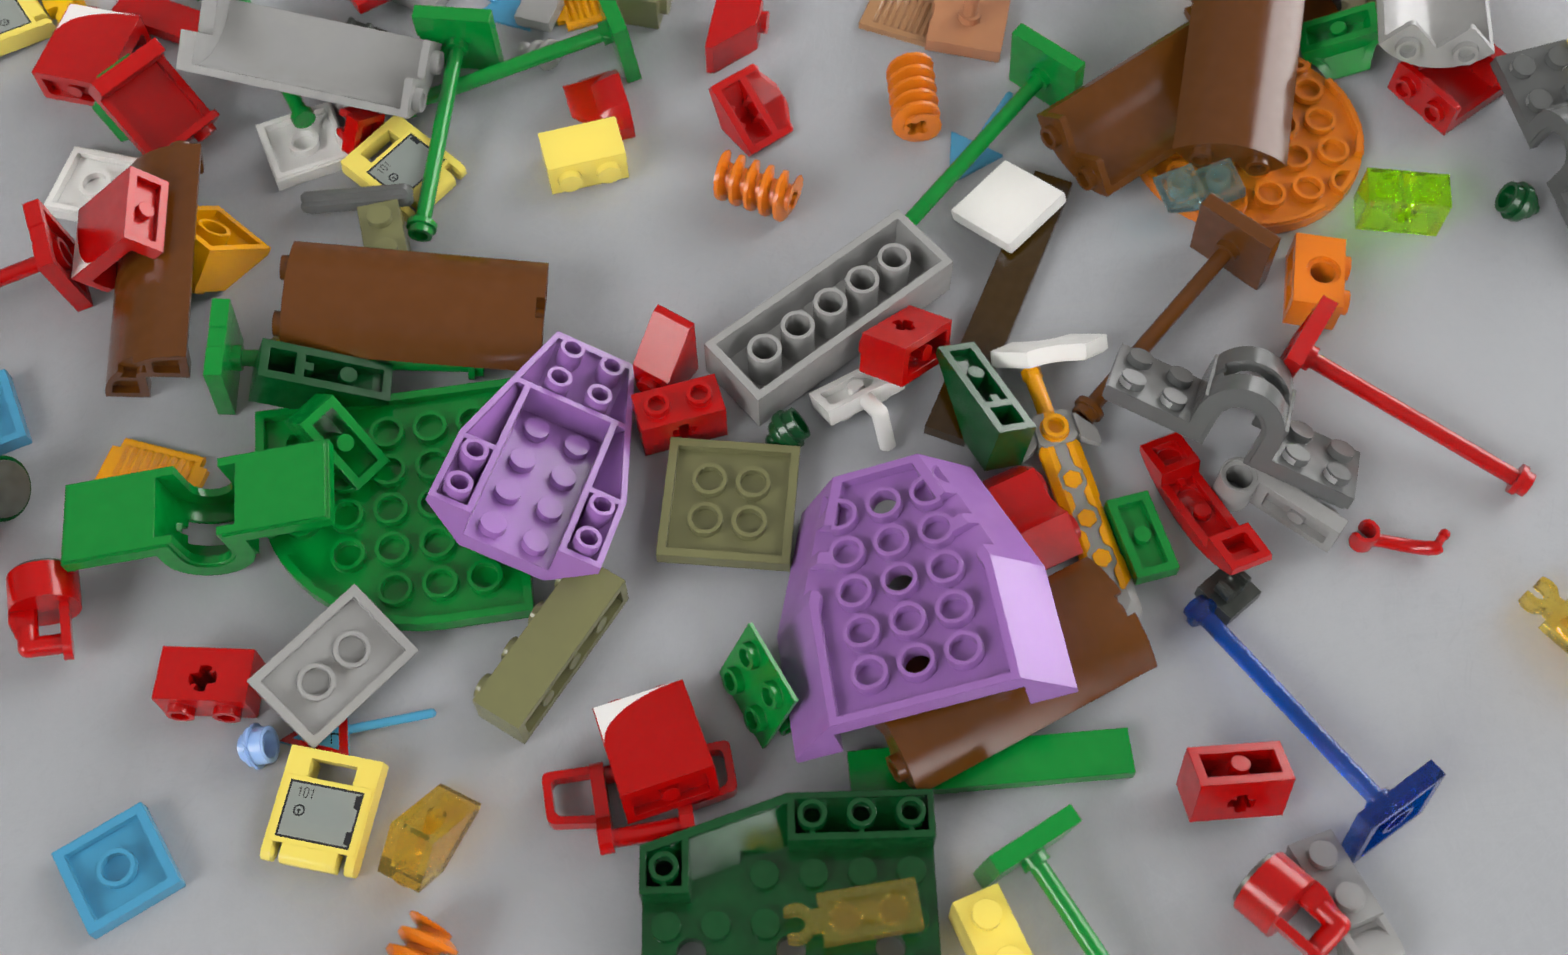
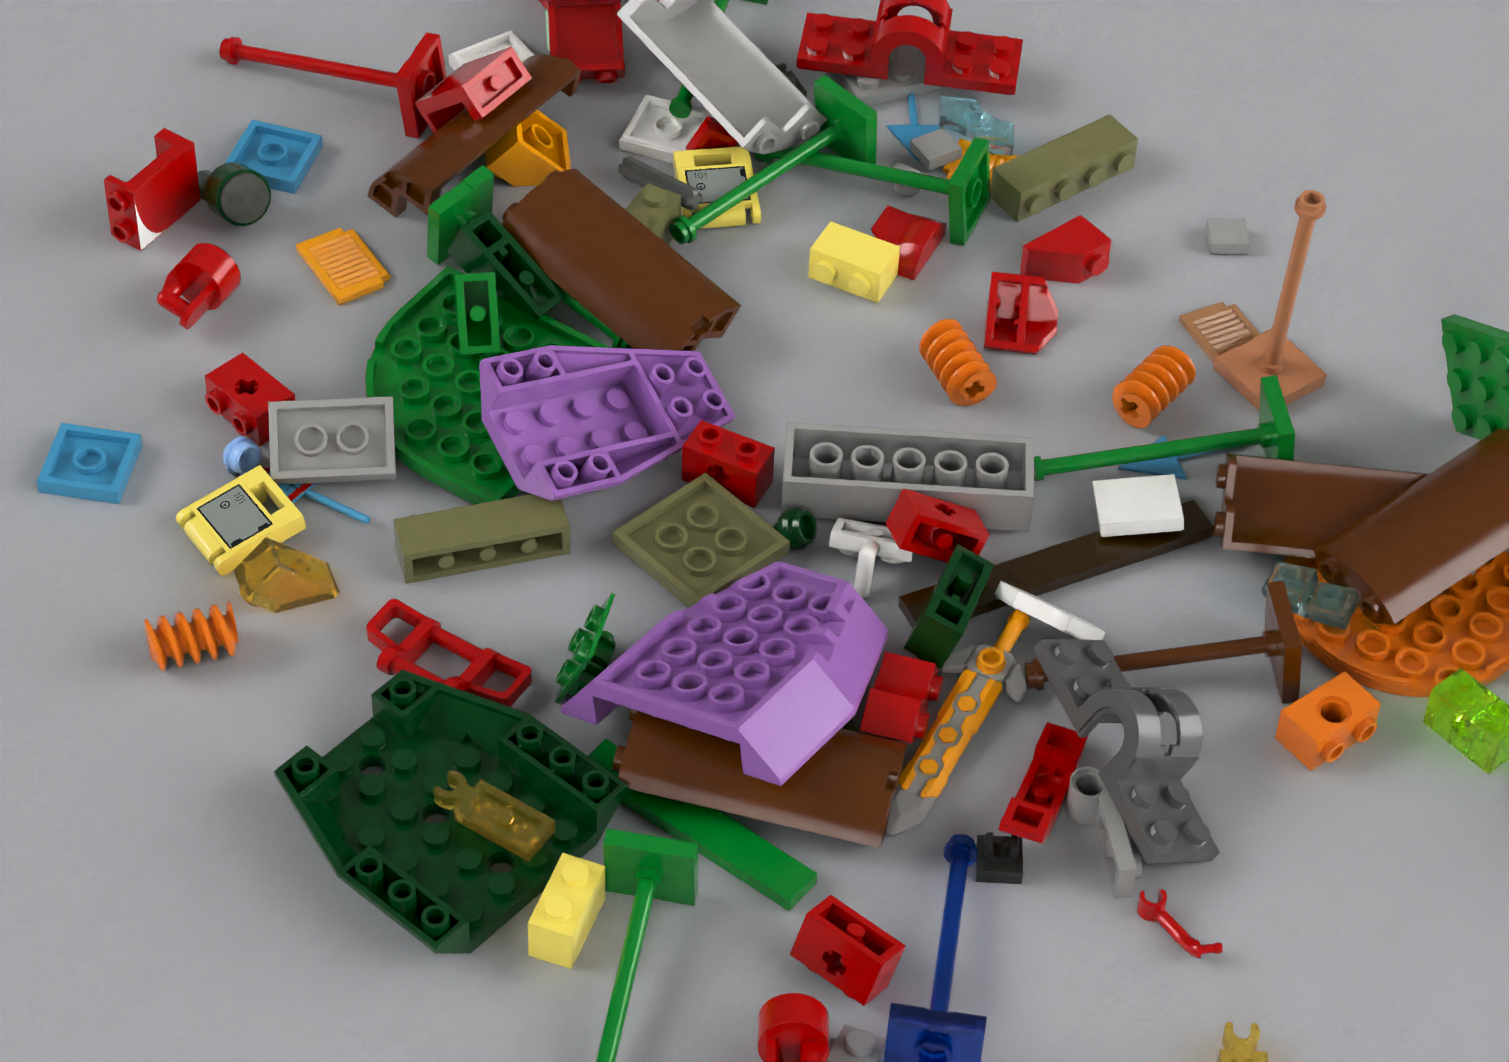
camera: 40 degrees right, 15 degrees down
(145, 511) = (324, 270): green piece -> none
(656, 751) = (474, 633): red panel -> none
(666, 351) = (760, 412): slope -> none
(1141, 537) = (973, 776): green plate -> none
(1304, 354) = (1246, 744): red tile -> none

